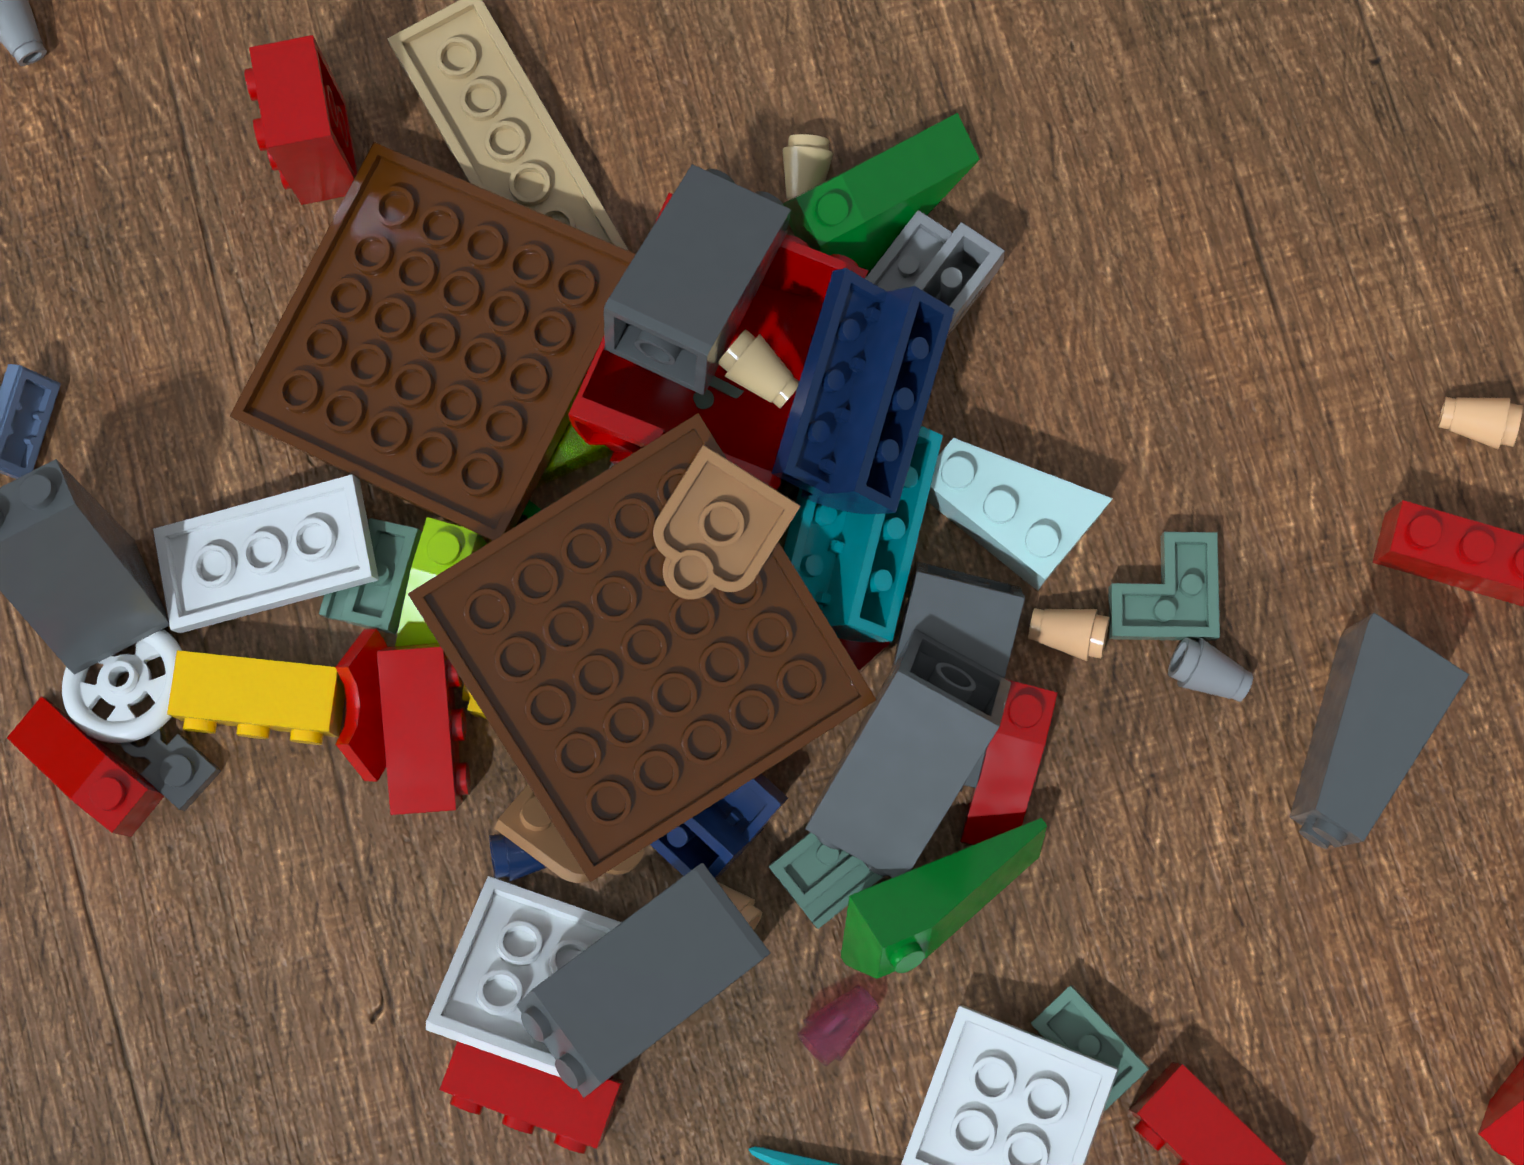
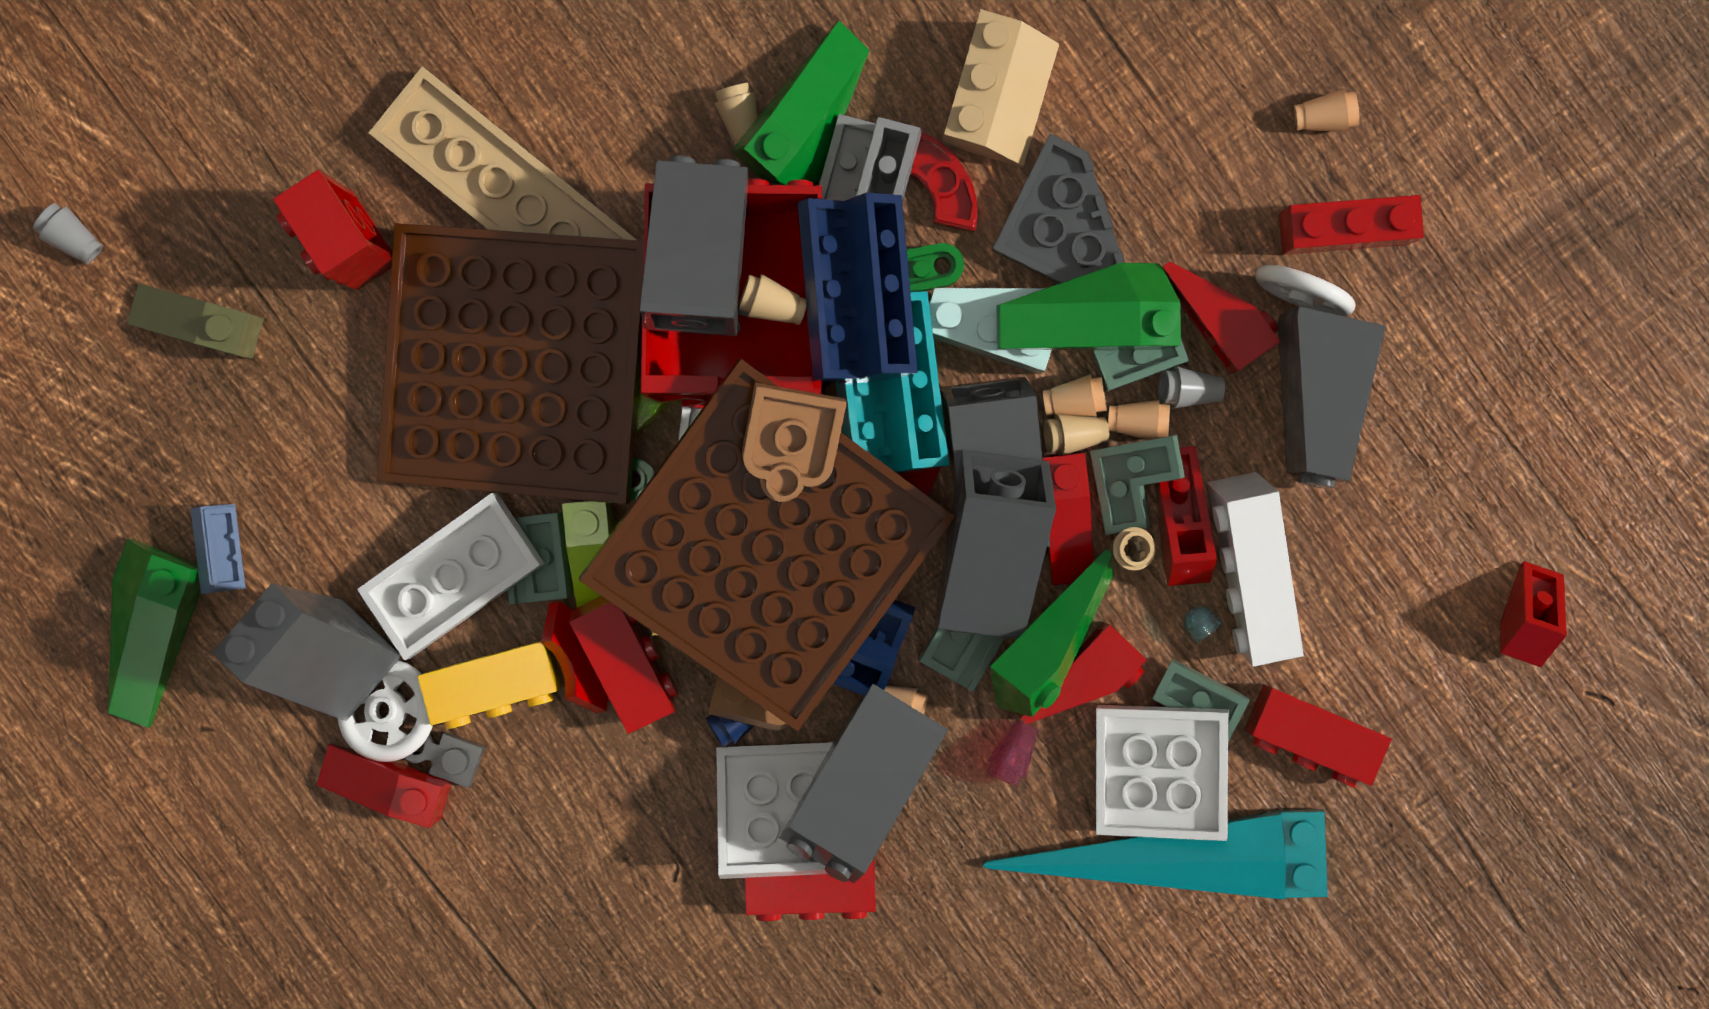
camera: 20 degrees left, 10 degrees up
(111, 168) = (195, 321): none -> olive slope
(950, 407) = (921, 266): none -> green plate
(976, 960) = (1099, 669): none -> red slope
(1010, 334) = (946, 184): none -> red tile
(1054, 670) = (1073, 433): none -> tan cone
(1084, 825) = (1141, 550): none -> tan cone
(1095, 737) = (1123, 473): none -> sand green plate
(1111, 253) = (1000, 89): none -> tan slope
(1122, 954) = (1201, 623): none -> clear light blue hinge
(1129, 431) = (1060, 218): none -> dark grey plate
(1130, 534) = (1104, 310): none -> green wedge
(1138, 685) = (1140, 419): none -> light nougat cone
(1147, 820) = (1185, 525): none -> red slope
(1213, 915) = (1256, 568): none -> white wedge
(1278, 608) = (1225, 321): none -> red slope
(1374, 590) = (1304, 289): none -> white plate

